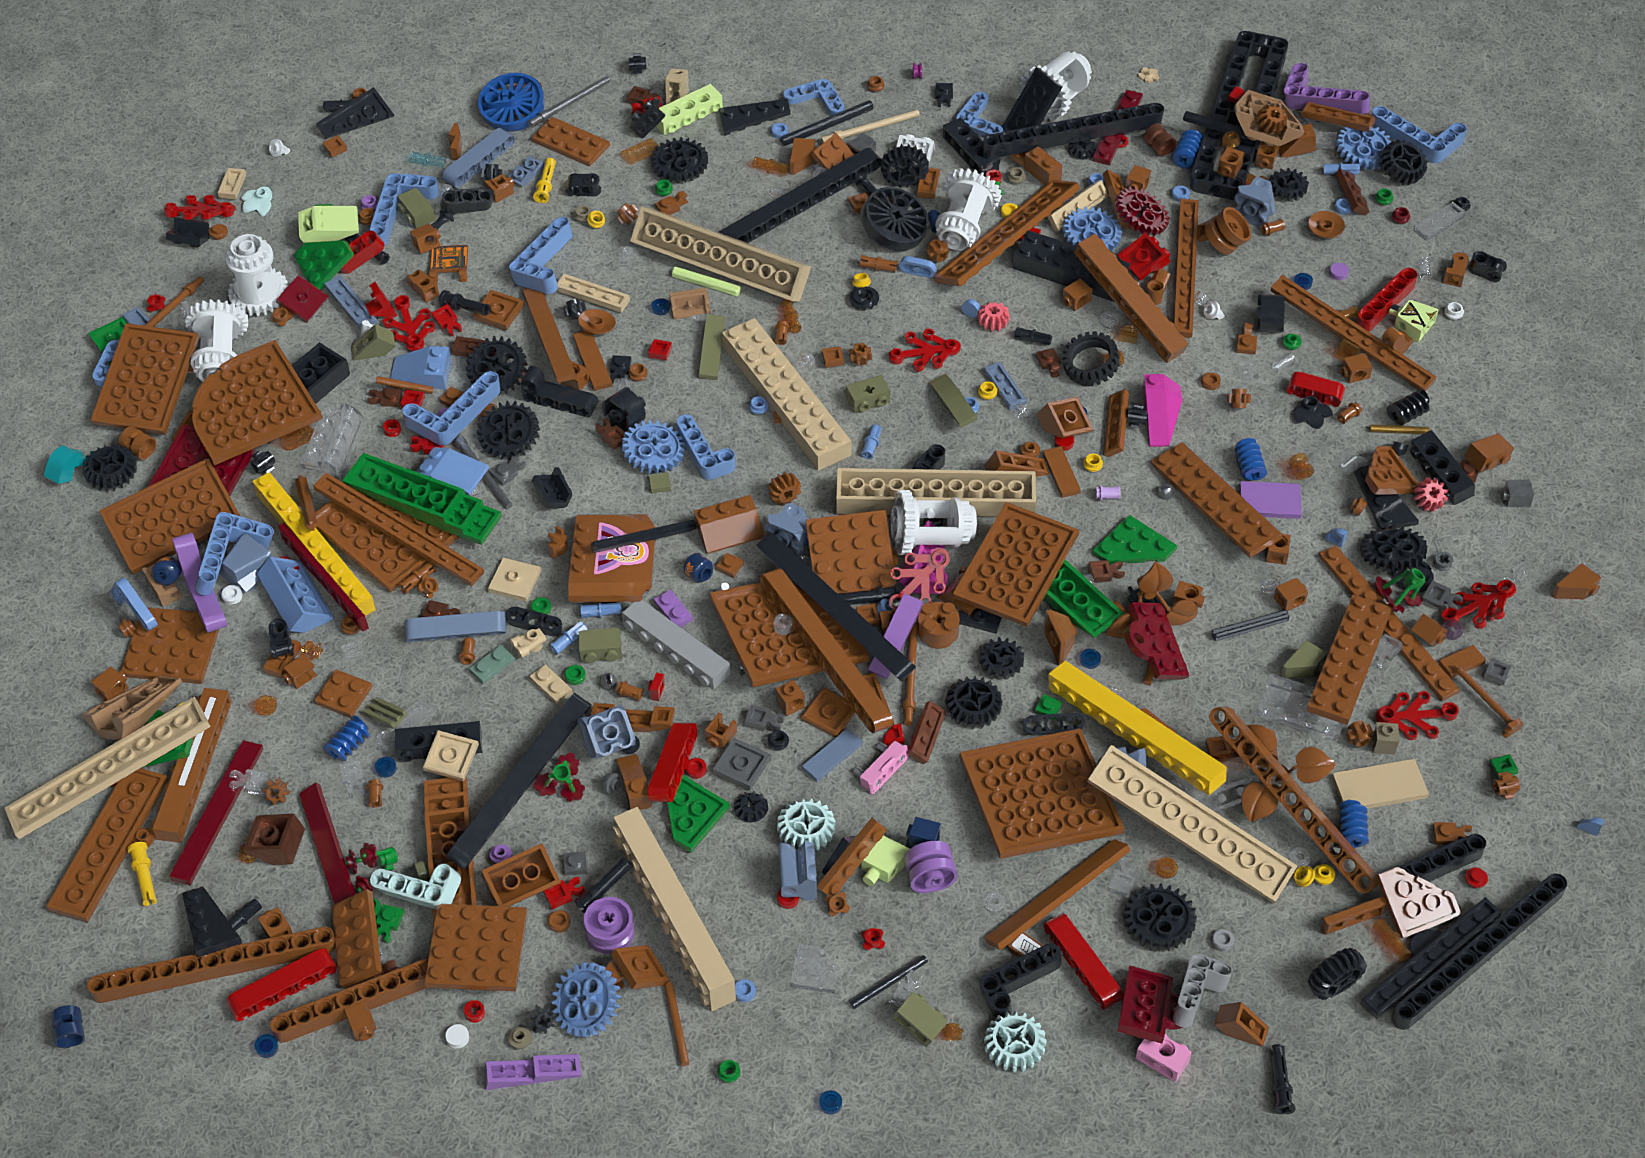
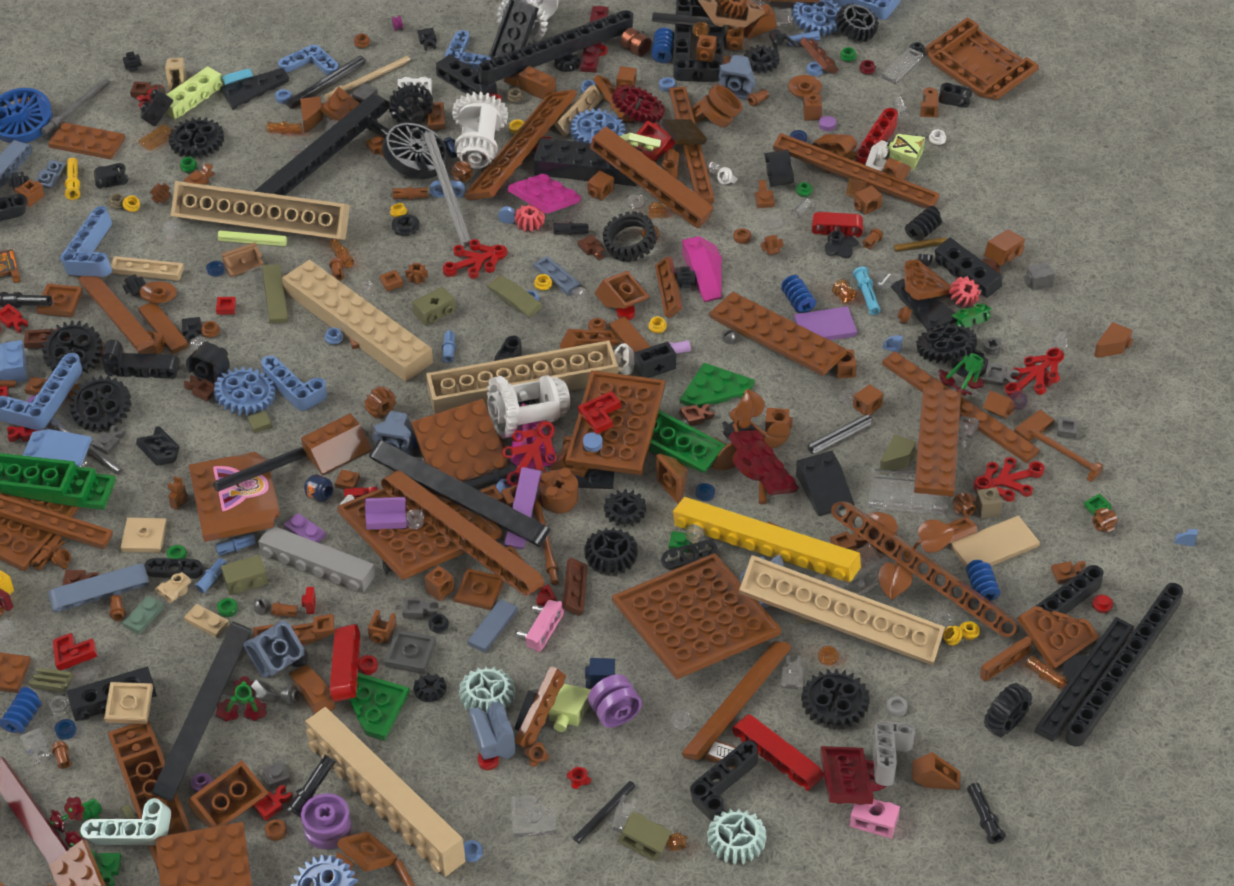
camera: 15 degrees left, 5 degrees down
(409, 688) = (69, 653): none -> red plate
(586, 773) = (264, 691): none -> flat silver plate
(736, 581) = (358, 492): none -> red plate
(738, 100) = (237, 76): none -> medium azure beam
(754, 612) = (385, 513): none -> medium lavender panel
(916, 267) = (447, 189): none -> light grey axle
(985, 581) = (592, 442): none -> medium blue tile
(997, 547) = (596, 411): none -> red plate
(1015, 292) = (544, 193): none -> dark pink plate
(1047, 494) = (625, 359): none -> white beam
(1065, 703) = (695, 533): none -> clear plate
(1078, 502) = (655, 360): none -> black brick
(1125, 253) = (638, 140): none -> yellowish green plate
(1180, 252) = (683, 131): none -> dark brown tile
(1217, 676) = (823, 482): none -> black slope
(1312, 164) = (778, 38): none -> black plant
(1326, 464) = (865, 285): none -> medium azure pin
(1327, 250) = (812, 107): none -> dark orange brick
(1339, 298) = (836, 143): none -> dark orange beam
(1347, 759) = (962, 527): none -> dark orange plate
(1380, 320) = (877, 153): none -> white bracket
(1439, 521) = (979, 313): none -> green hinge
(1525, 231) = (970, 49): none -> dark orange slope

